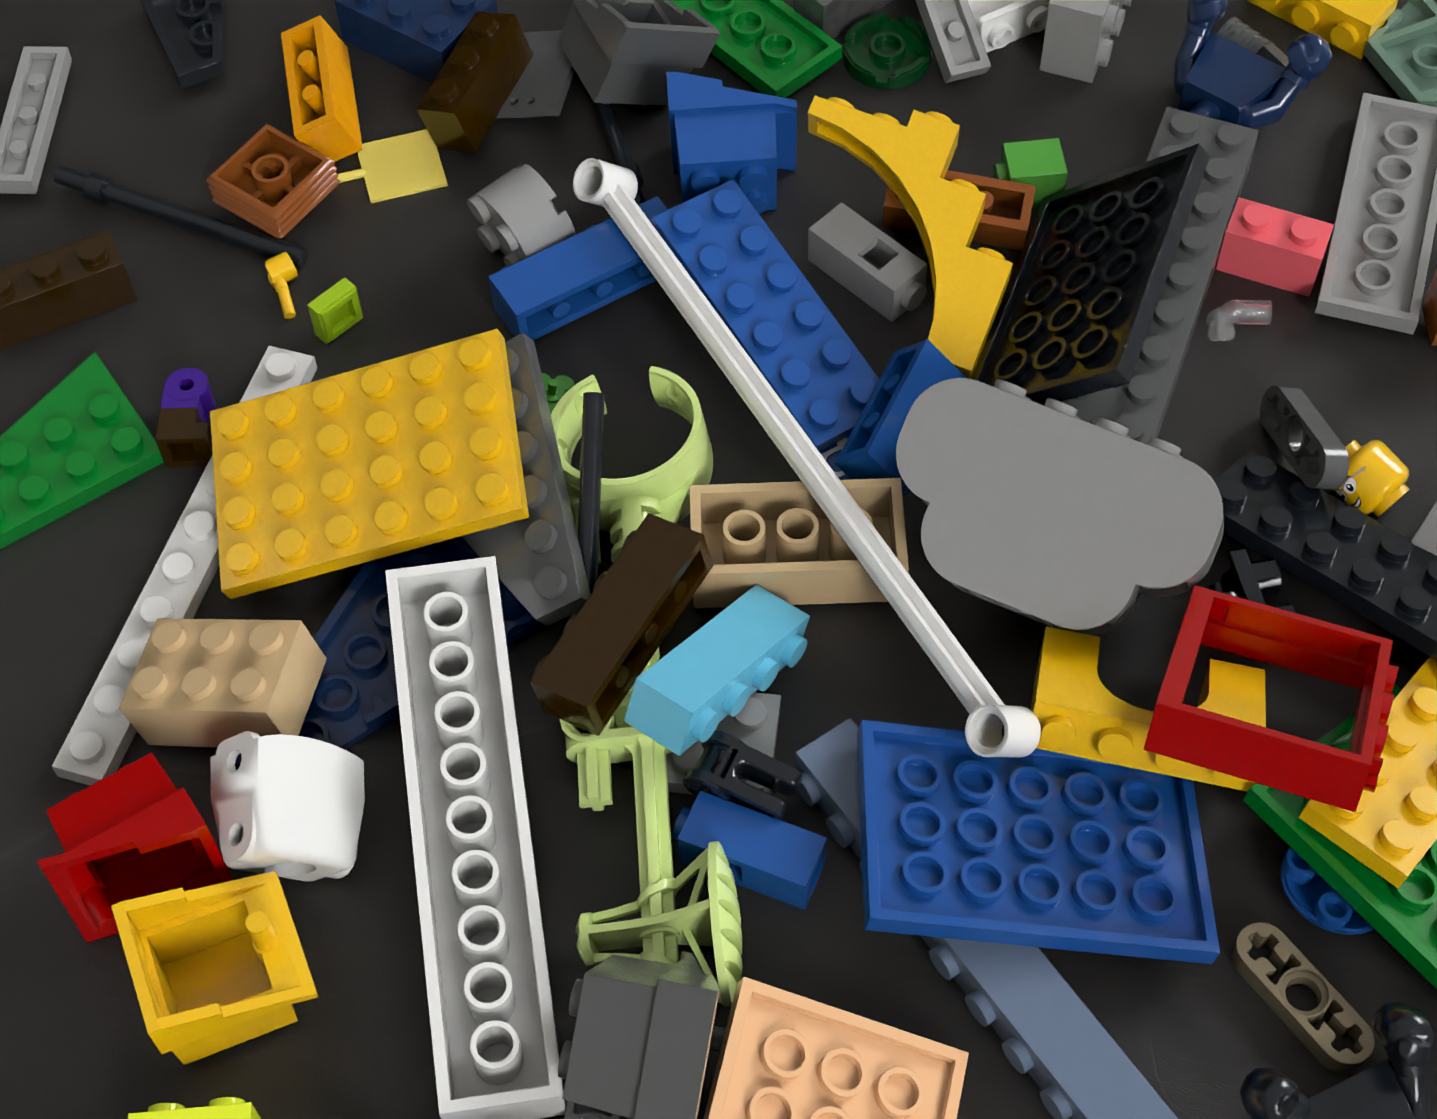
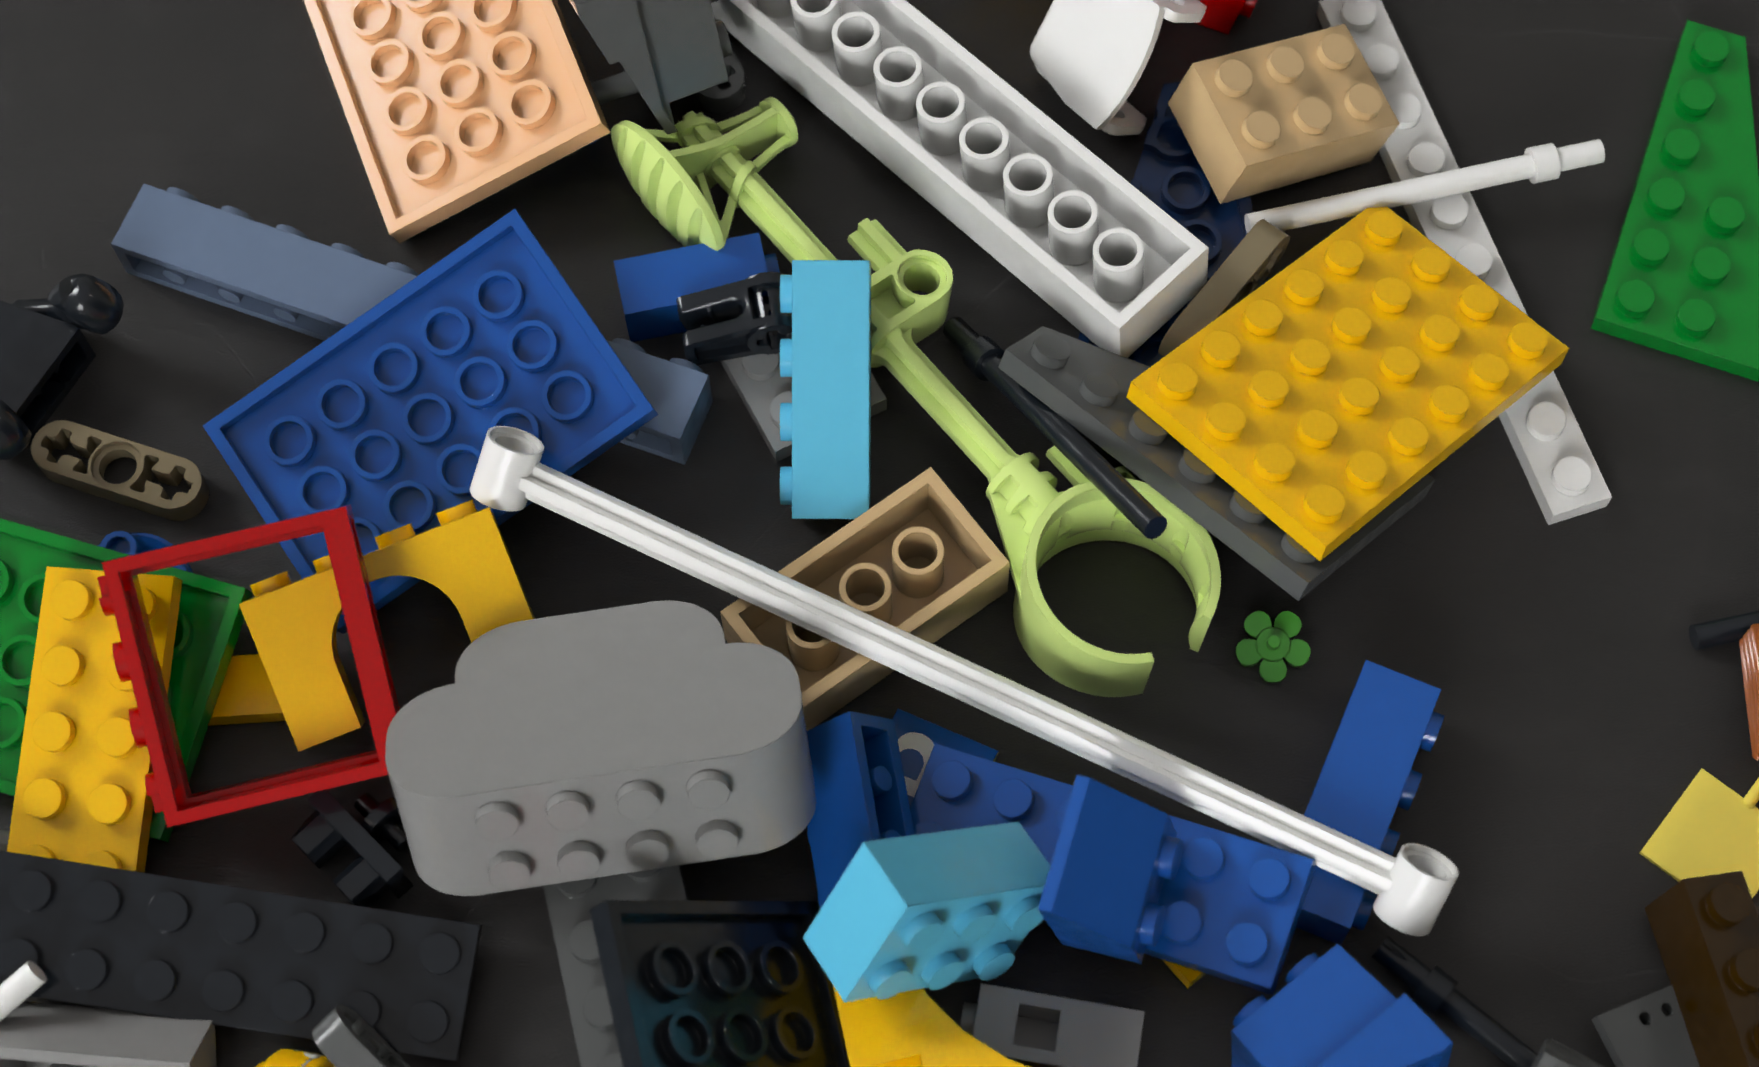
camera: 145 degrees right, 10 degrees up
(96, 549) = (1537, 164): none -> white bar
(184, 419) = (1609, 363): leg -> none
(280, 271) = (1696, 591): yellow hand -> none
(335, 310) = (1581, 577): lime tile -> none
(364, 586) = (1231, 283): none -> dark tan beam
(519, 215) = (1481, 803): light grey brick -> none
(621, 623) = (949, 356): dark brown brick -> none
(783, 260) = (1110, 872): none -> blue slope
(905, 293) = (929, 911): none -> medium azure brick

